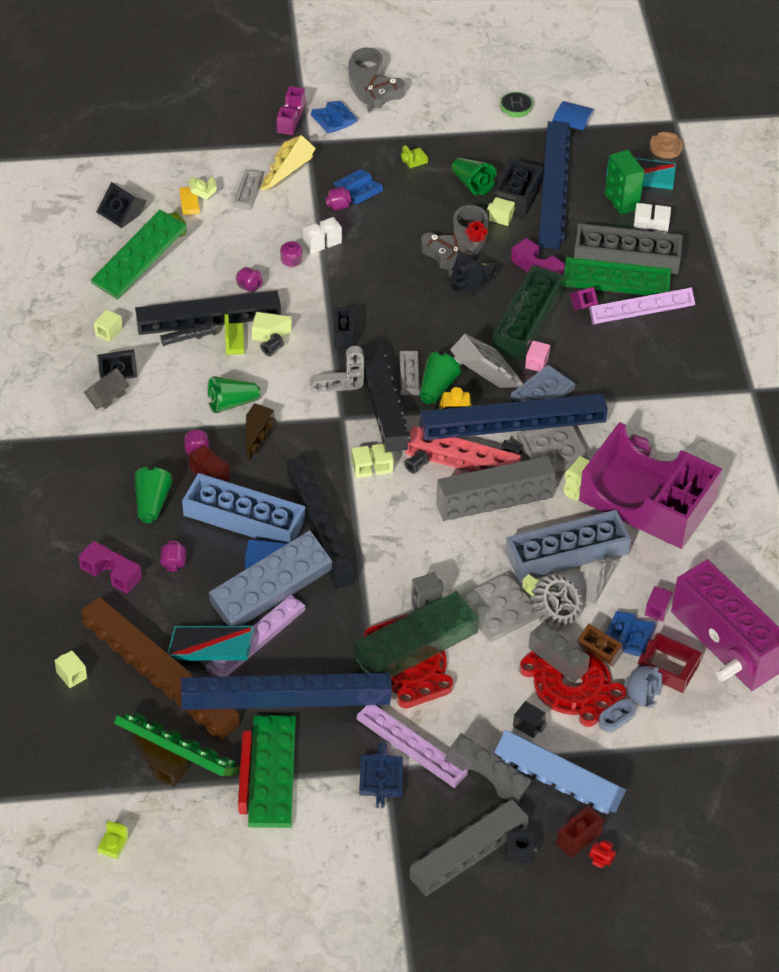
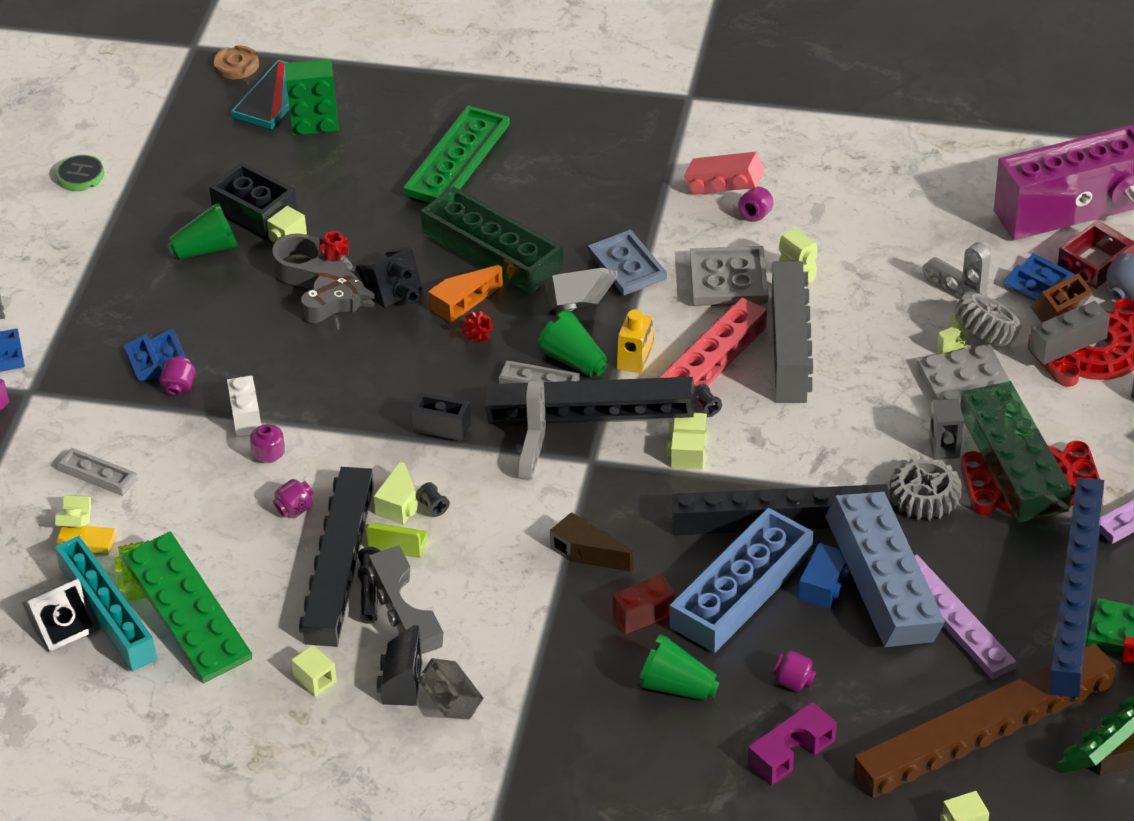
camera: 70 degrees left, 5 degrees down
(130, 219) = (107, 603): none -> teal brick
(186, 335) = (390, 574): none -> dark grey arch
(195, 439) = (591, 611): magenta head -> none
(211, 642) = (961, 656): tile -> none
(230, 393) = (516, 559): green cone -> none
(288, 158) = (70, 415): light yellow wedge -> none
(369, 603) = (925, 488): none -> light grey gear
(414, 157) = (129, 289): lime bracket -> none
(438, 322) = (477, 327): none -> red gear
(473, 312) = (461, 293): none -> orange slope
(512, 448) = (716, 310): black bush -> none
(513, 417) = (677, 290): dark blue brick -> none
(526, 254) = (383, 224): magenta arch -> none
(537, 356) = (573, 251): bright pink brick -> none
(553, 185) = (217, 158): dark blue brick -> none
(567, 545) = (899, 293): sand blue brick -> none
(573, 114) = (136, 125): blue slope -> none
(583, 298) = (490, 186): magenta brick -> none
(629, 246) = (417, 129): dark grey brick -> none
(642, 306) = (519, 146): lavender plate -> none
(644, 222) = (369, 101): white piece -> none
(648, 493) = (852, 193): magenta piece -> none
(653, 418) = (724, 173): none -> coral brick
(658, 603) = (1005, 242): magenta brick -> none

